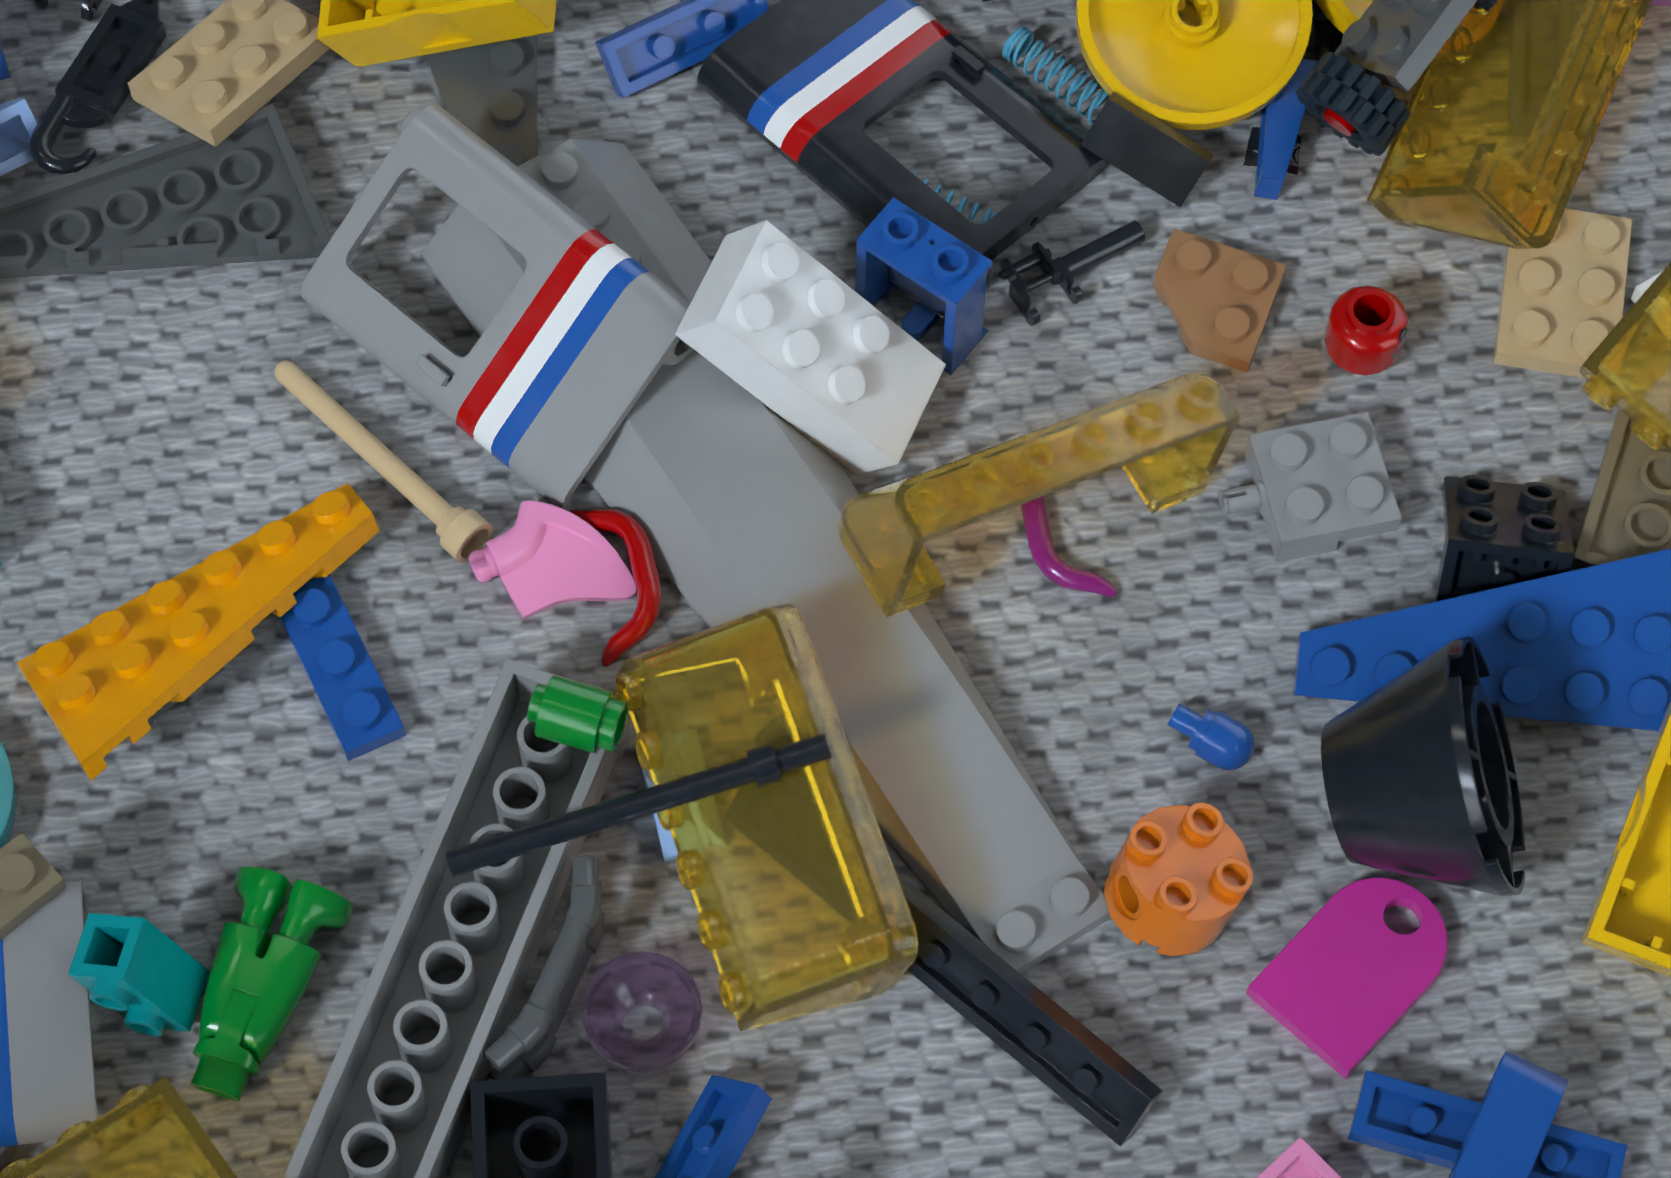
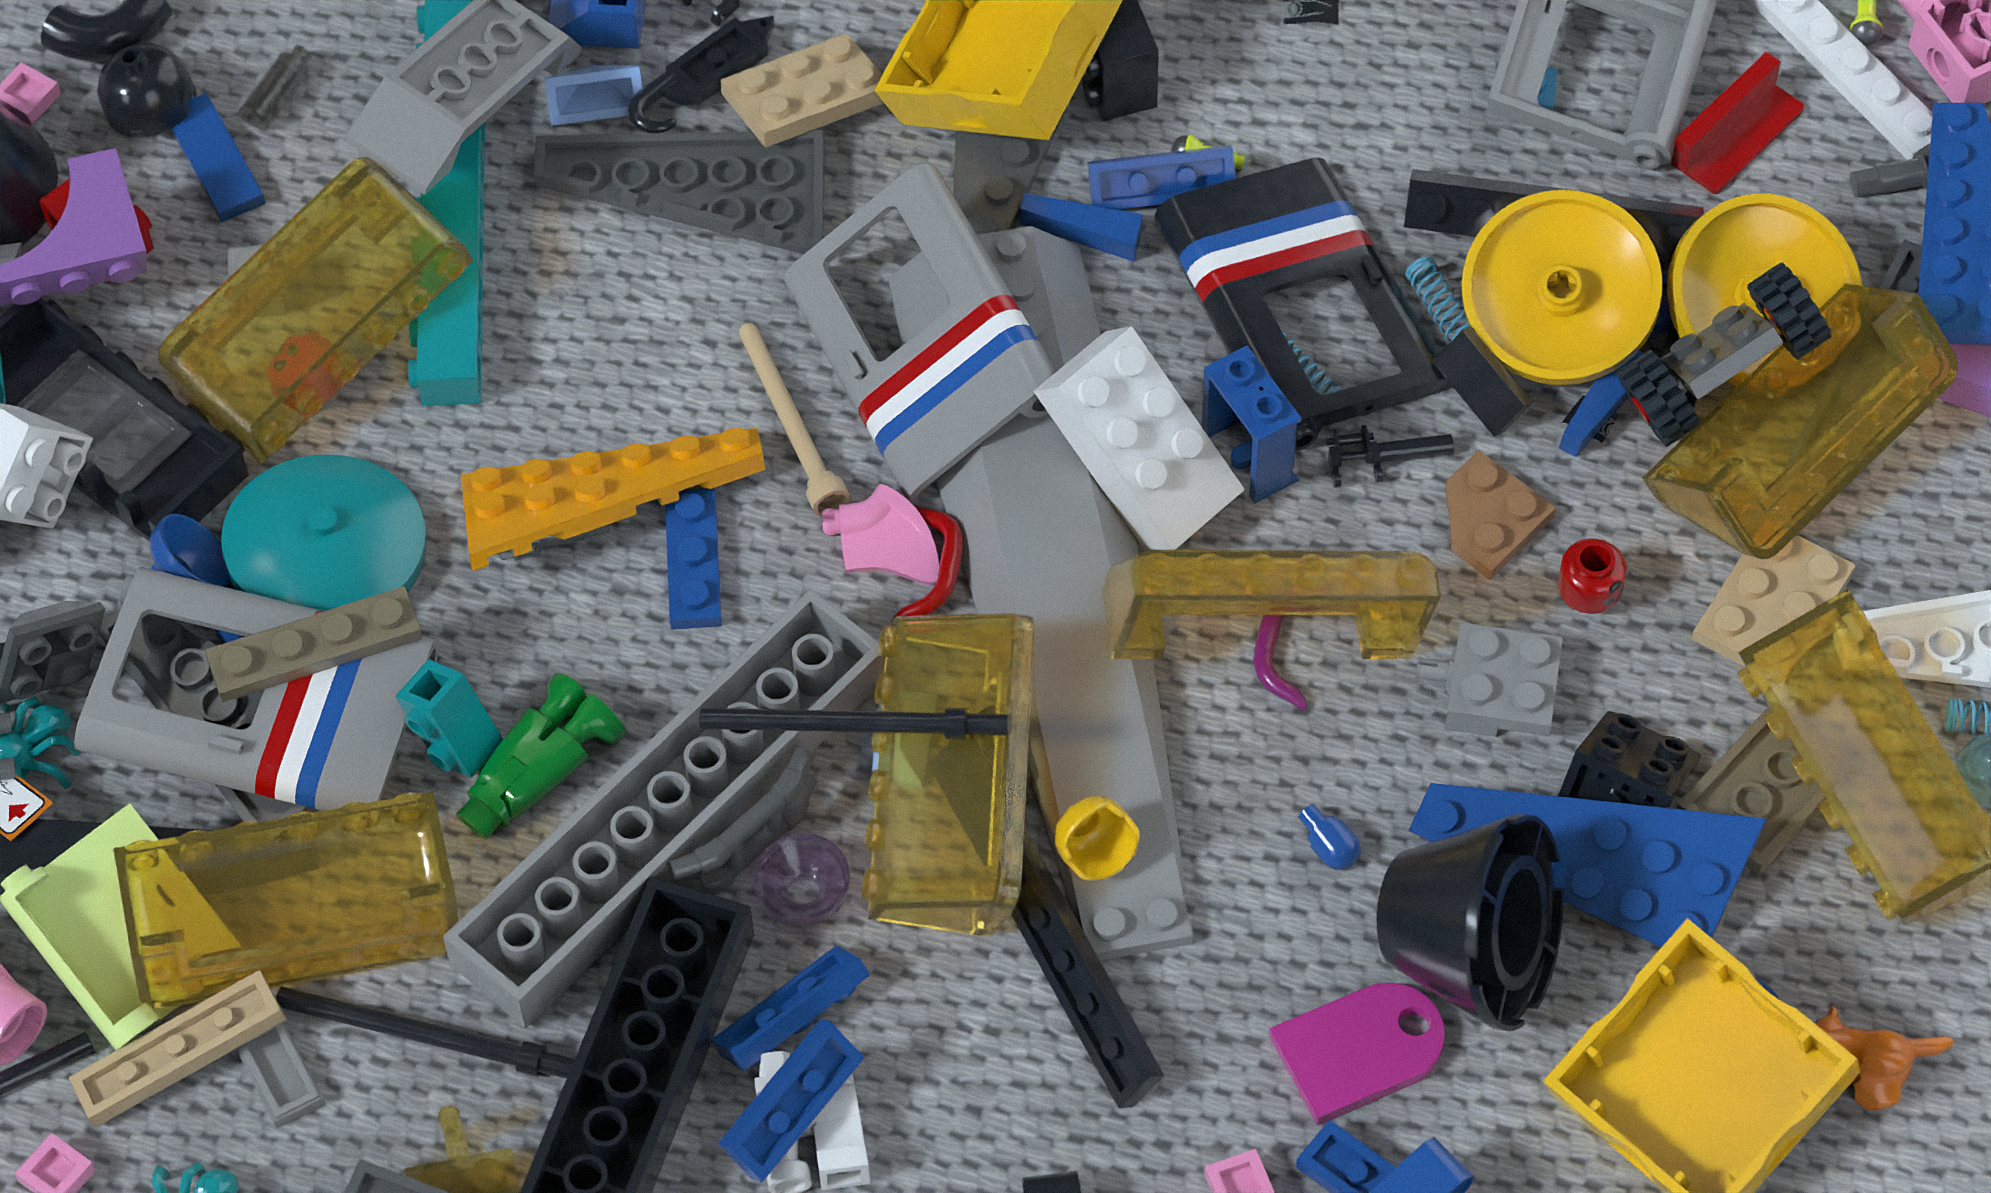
camera: 25 degrees right, 5 degrees down
(577, 714) = (840, 643): green brick -> none
(620, 115) = (1085, 224): none -> blue piece
(968, 838) = (1096, 838): none -> yellow hair
(1178, 879) = (1247, 927): orange brick -> none

